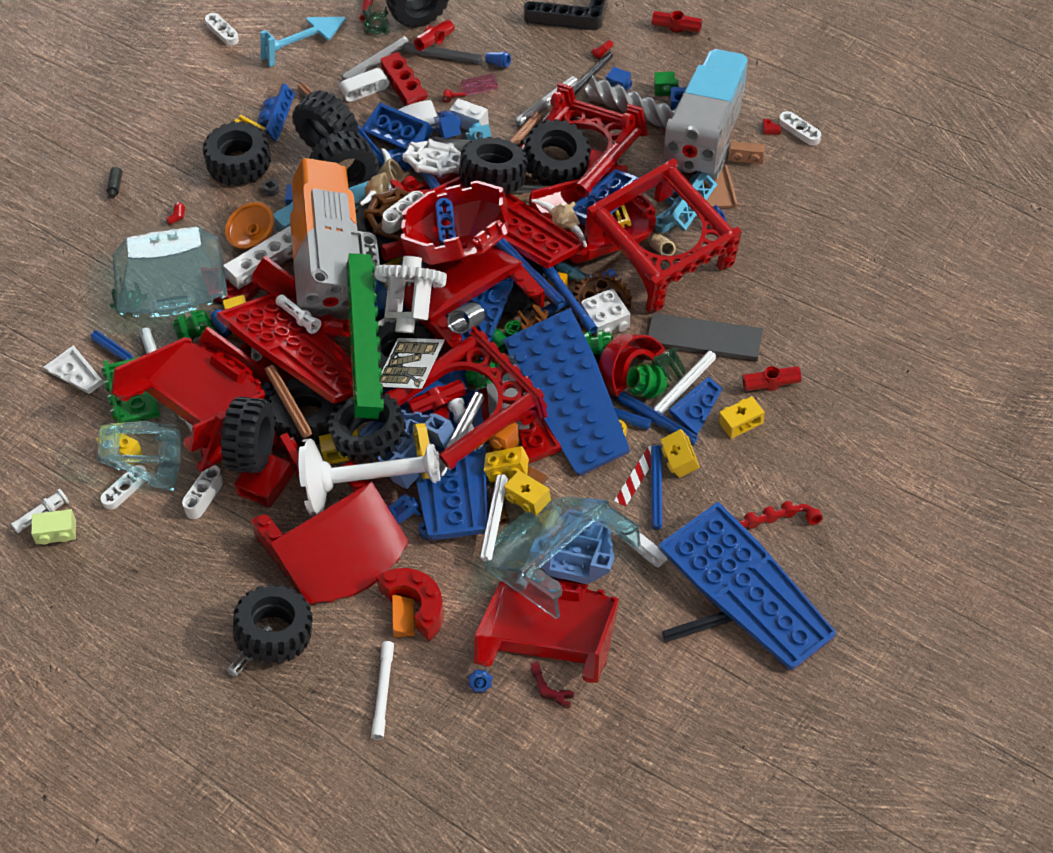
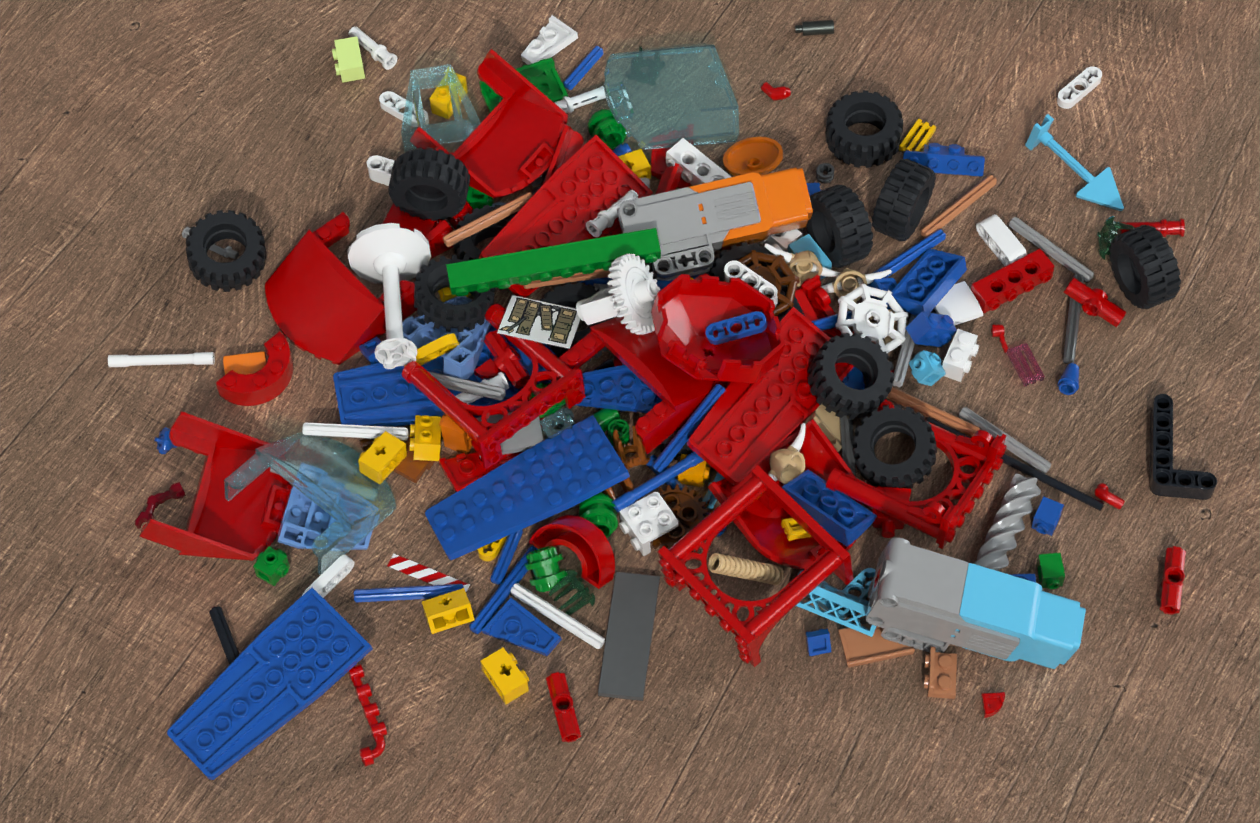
camera: 85 degrees right, 5 degrees up
(457, 322) = (582, 348): dark grey piece -> none
(626, 585) = (271, 565): none -> green brick
(809, 135) = (993, 749): white beam -> none

